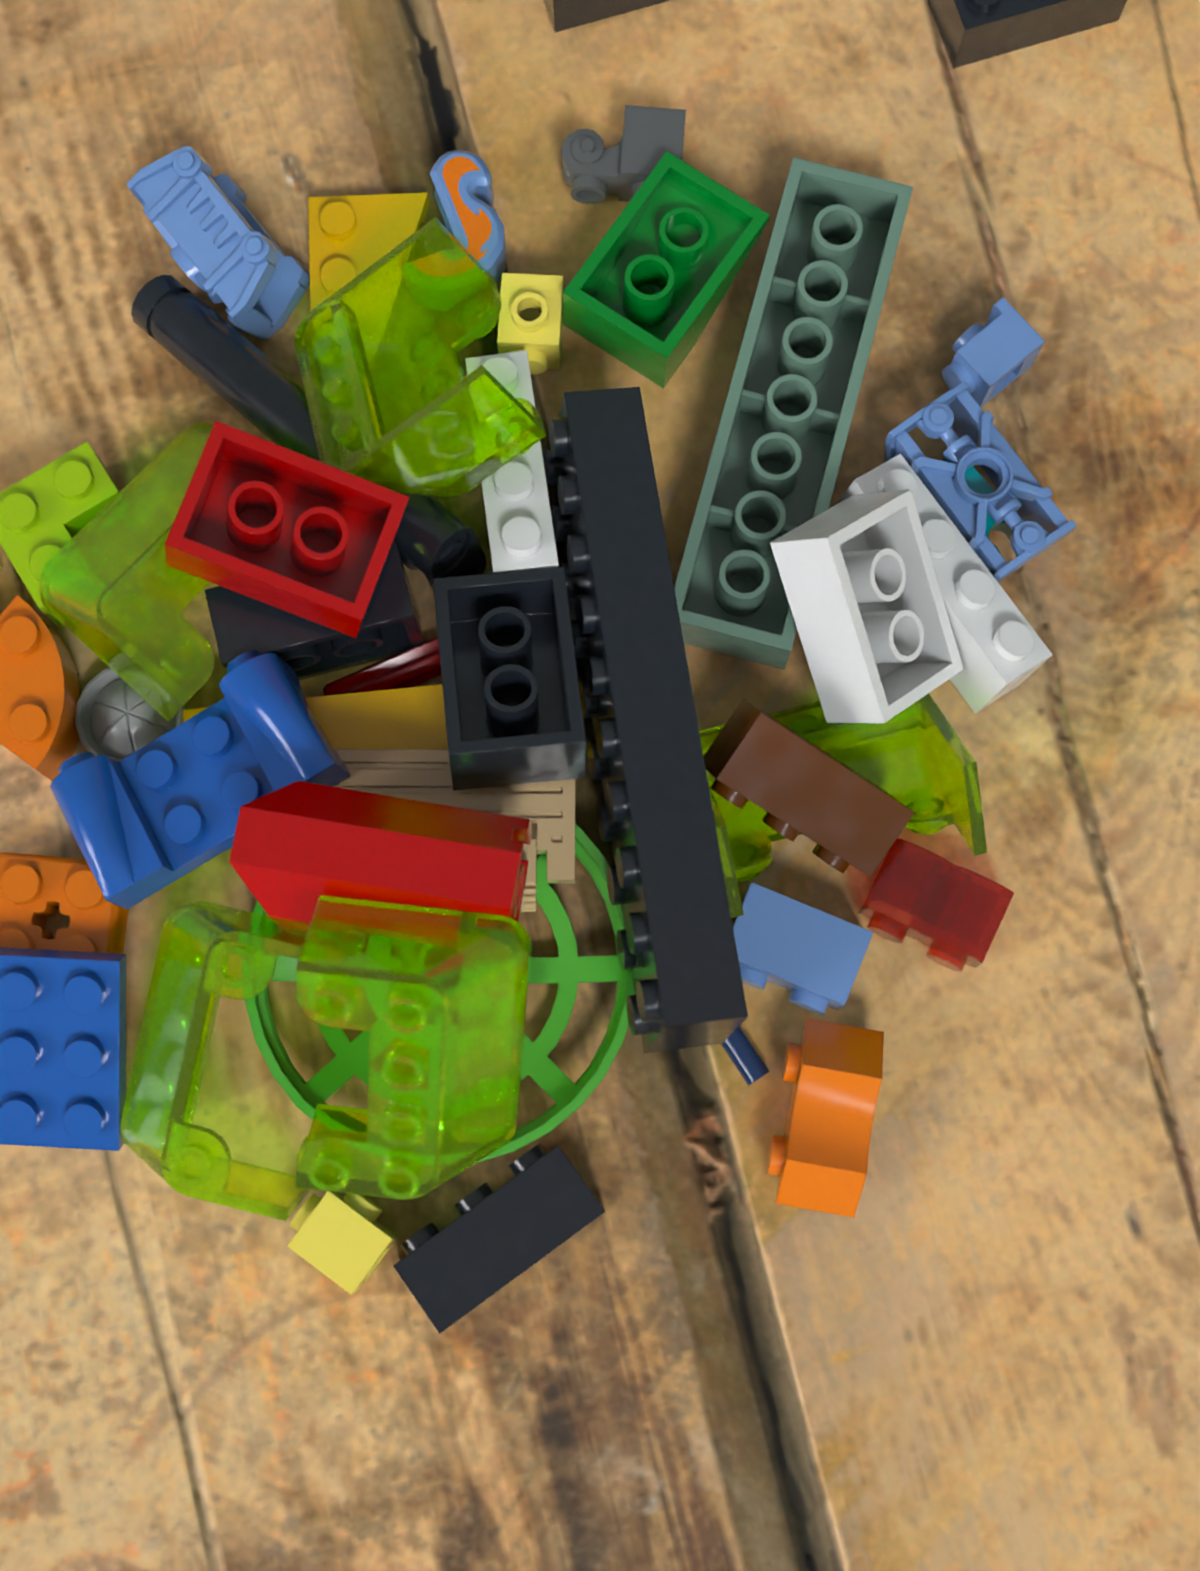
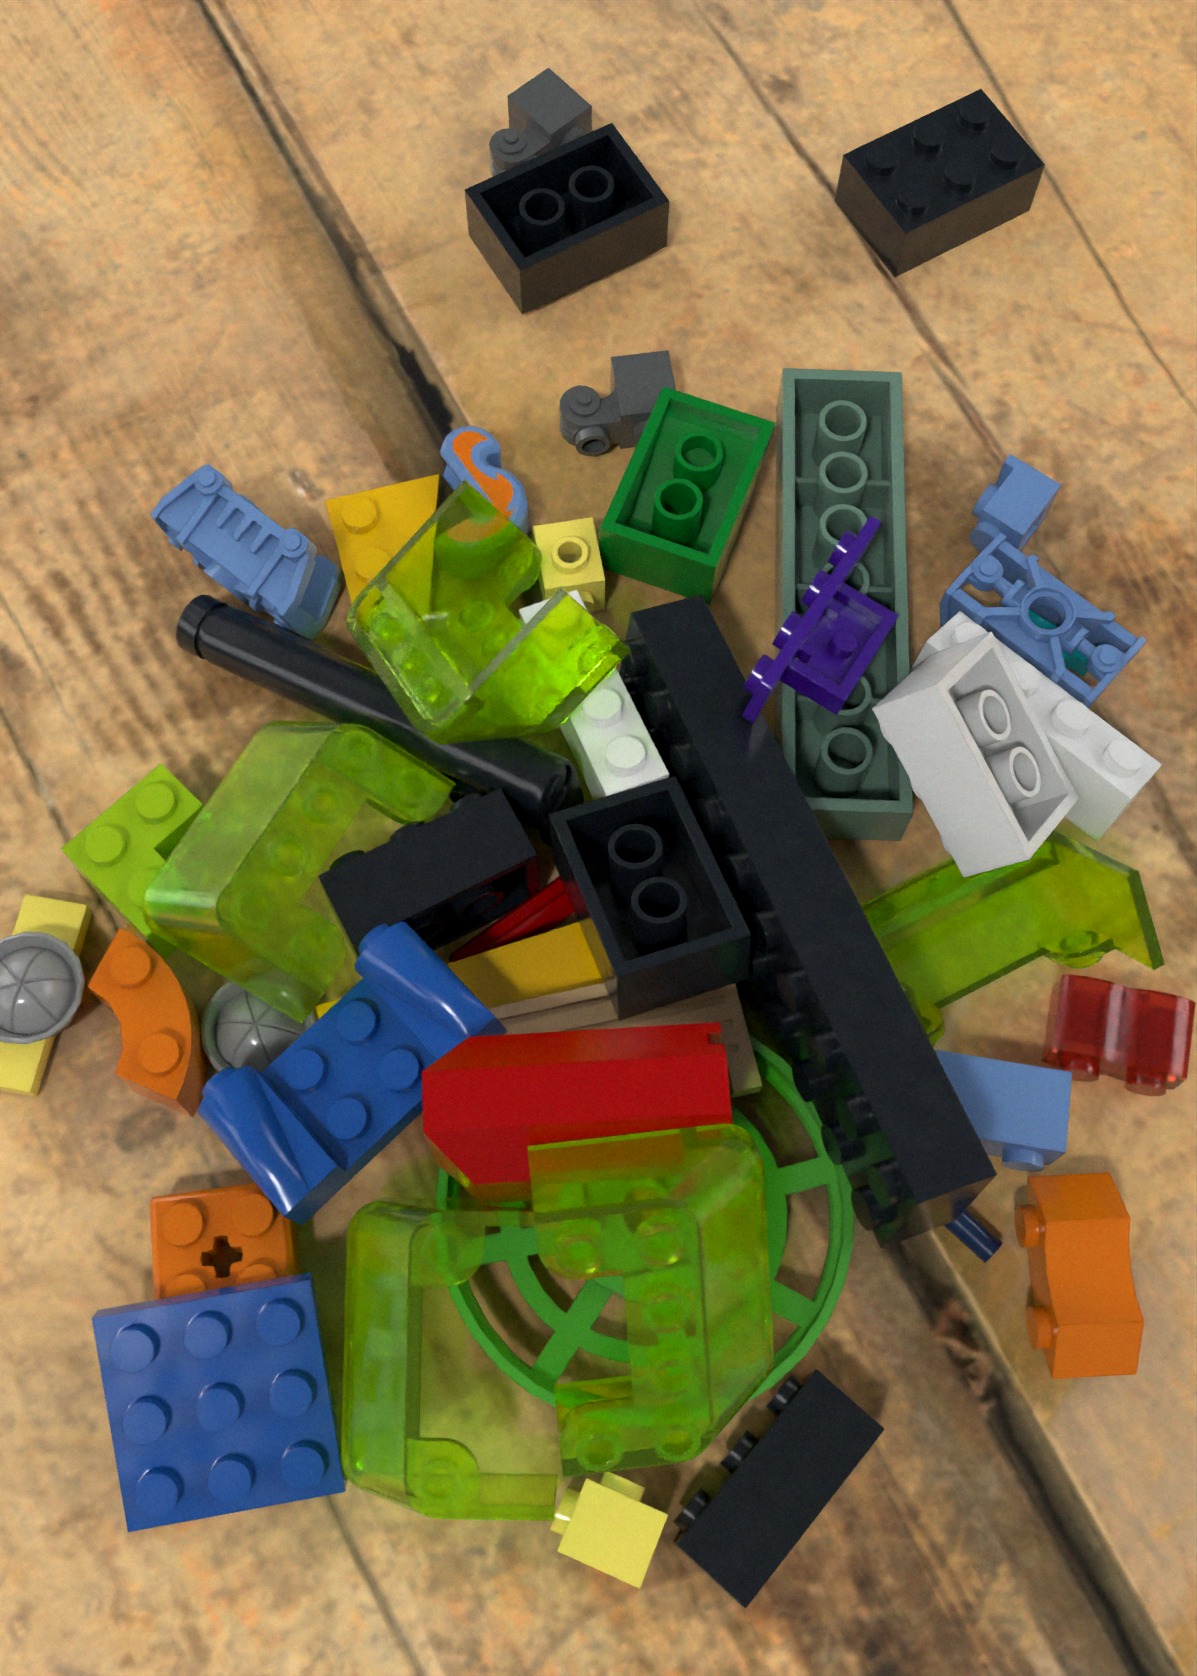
camera: 15 degrees left, 10 degrees down
(284, 529) = (397, 792): red brick -> none
(753, 463) = (834, 639): none -> dark purple bracket
(804, 790) = (968, 945): reddish brown brick -> none

